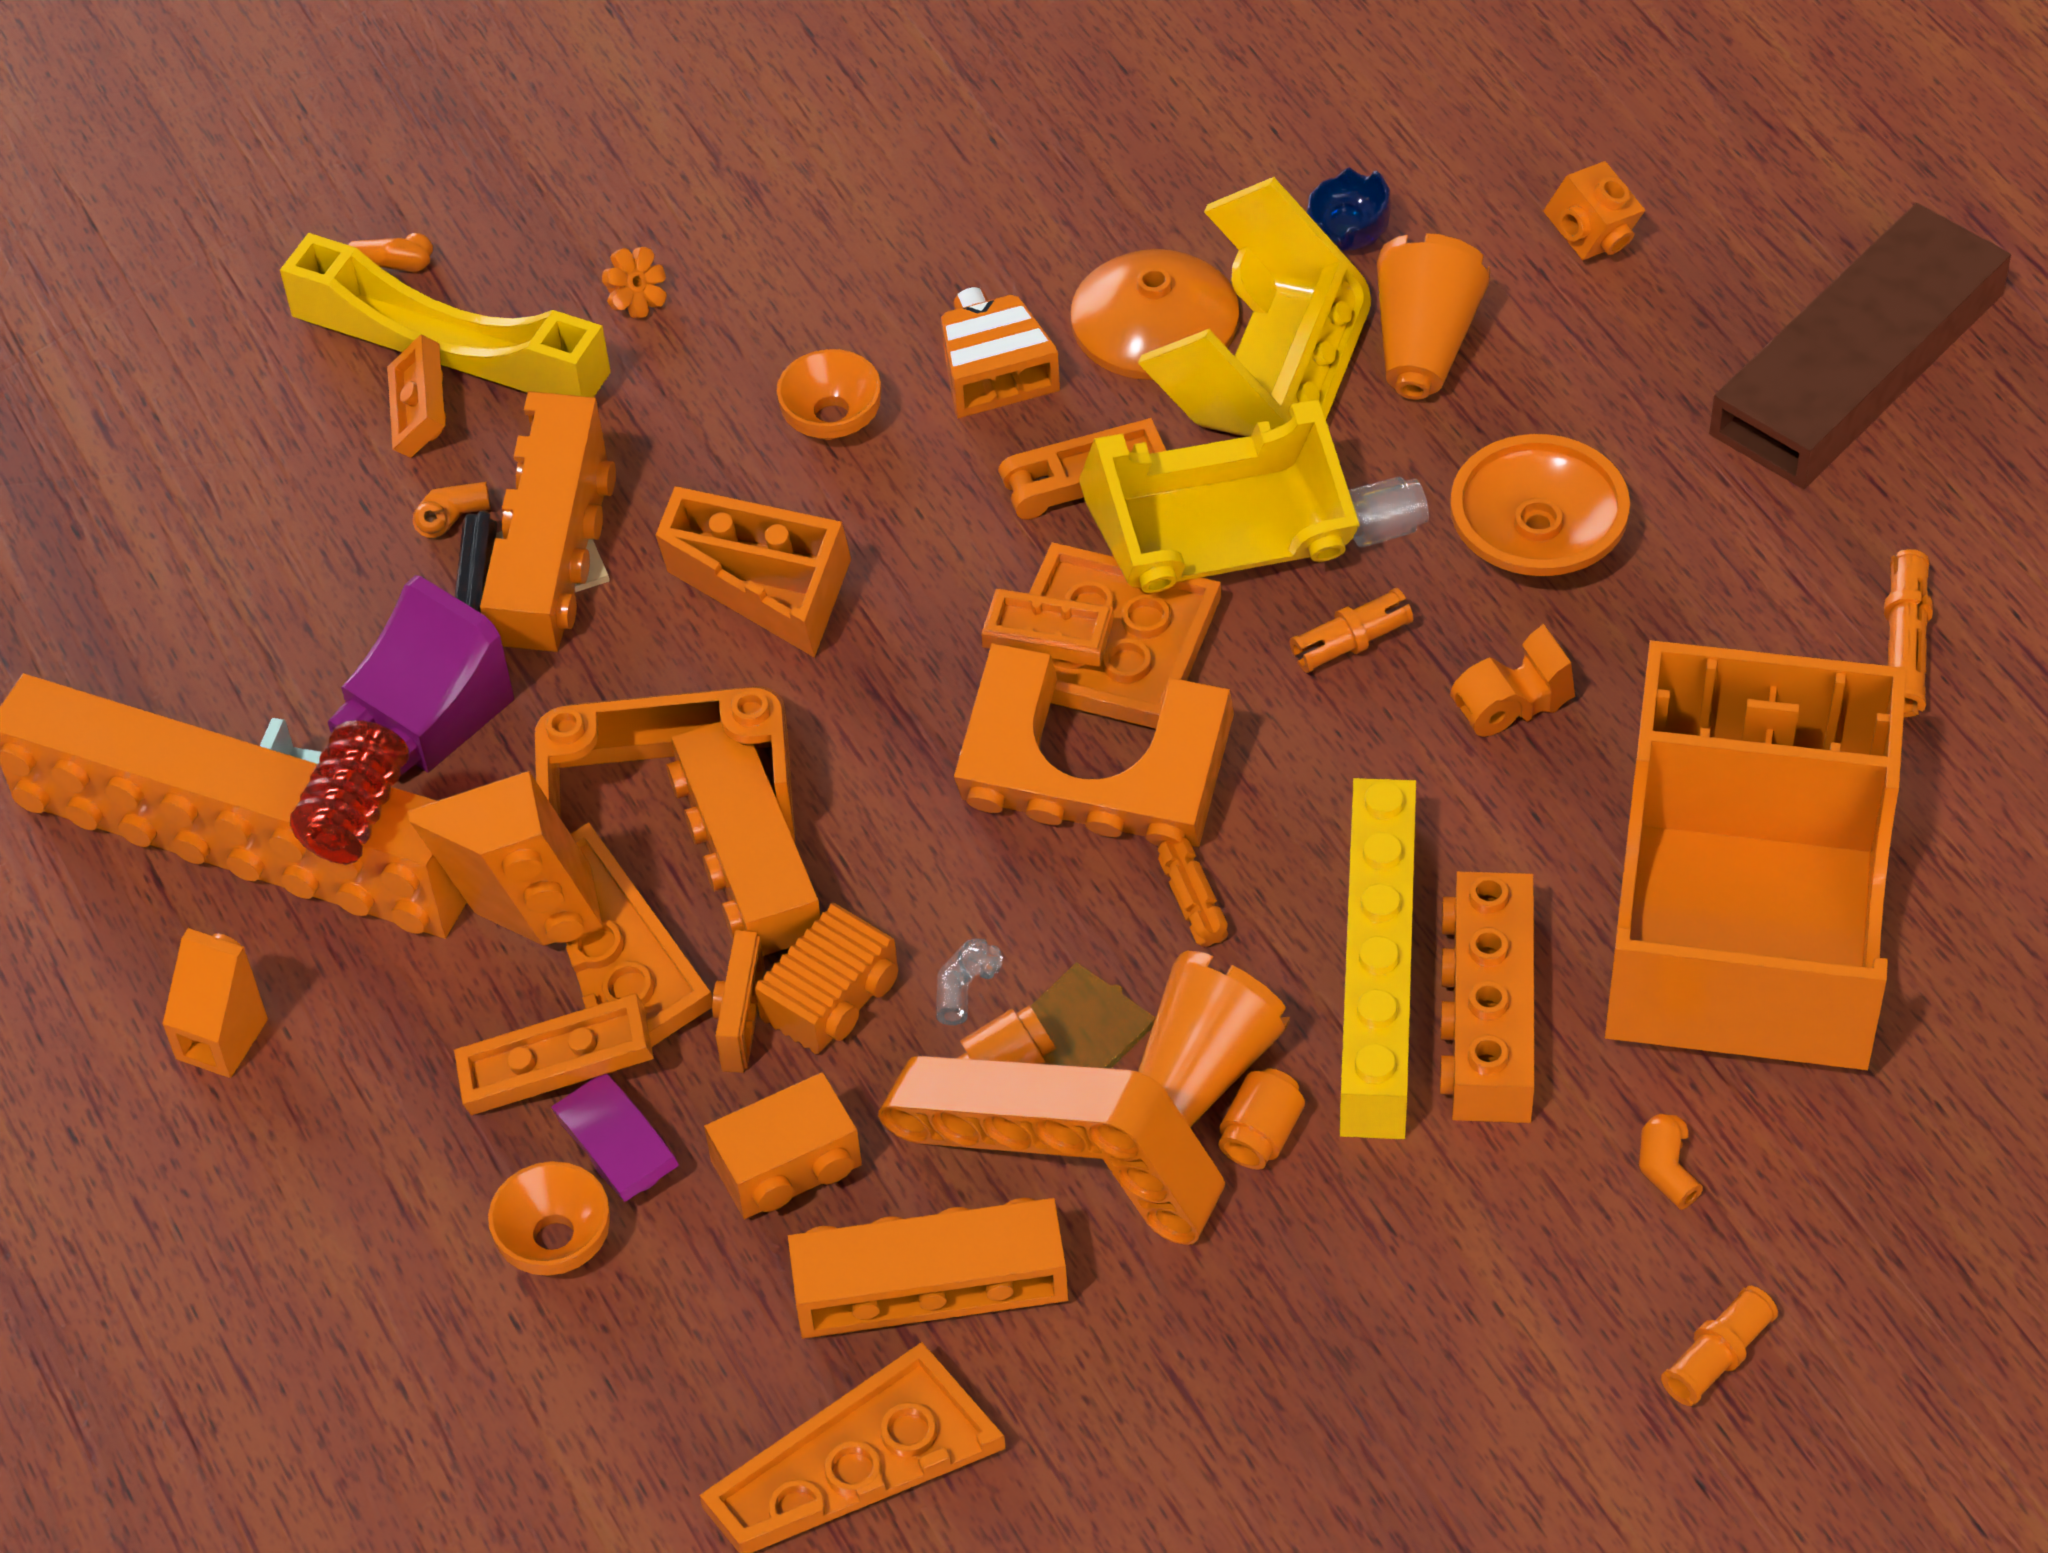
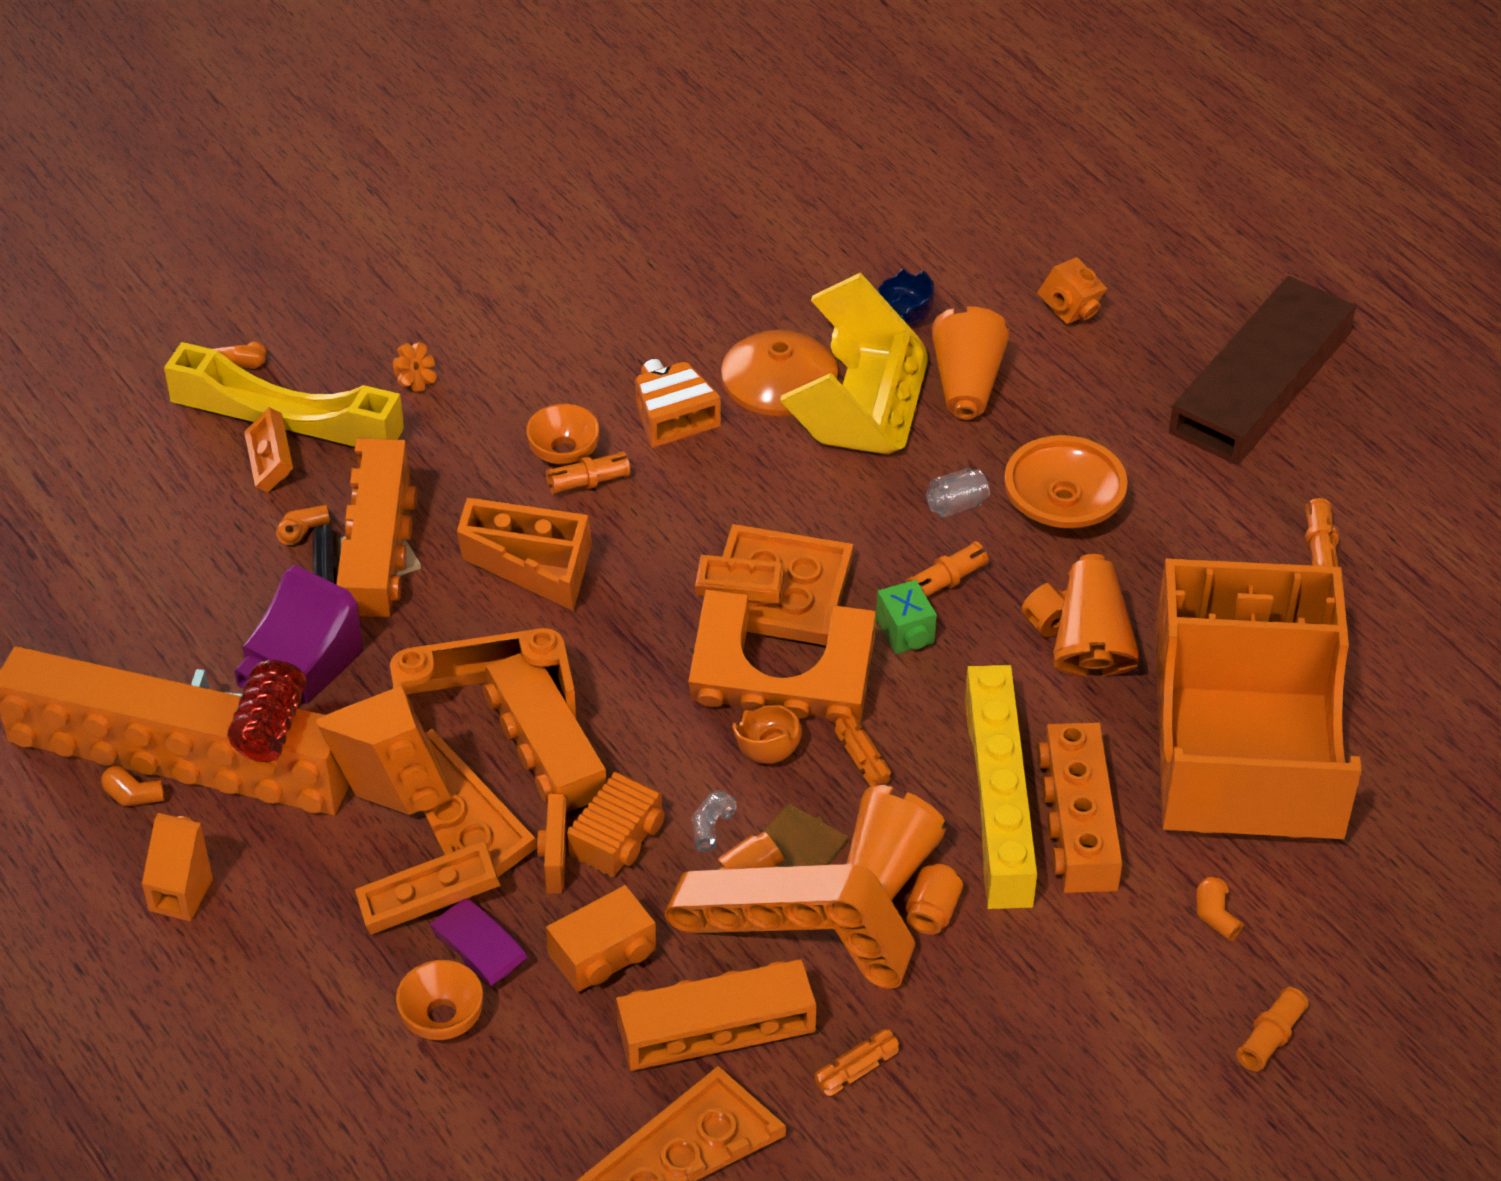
camera: 10 degrees left, 5 degrees down
(166, 885) = (128, 791): none -> orange arm
(859, 452) = (588, 472): none -> orange pin
(1059, 859) = (768, 734): none -> orange hair
(1063, 465) = (746, 474): orange plate -> none
(1119, 1349) = (856, 1062): none -> orange axle
(1221, 502) = (848, 490): yellow windscreen -> none
(1281, 695) = (906, 616): none -> bright green brick
(1546, 722) = (1094, 622): none -> orange cone

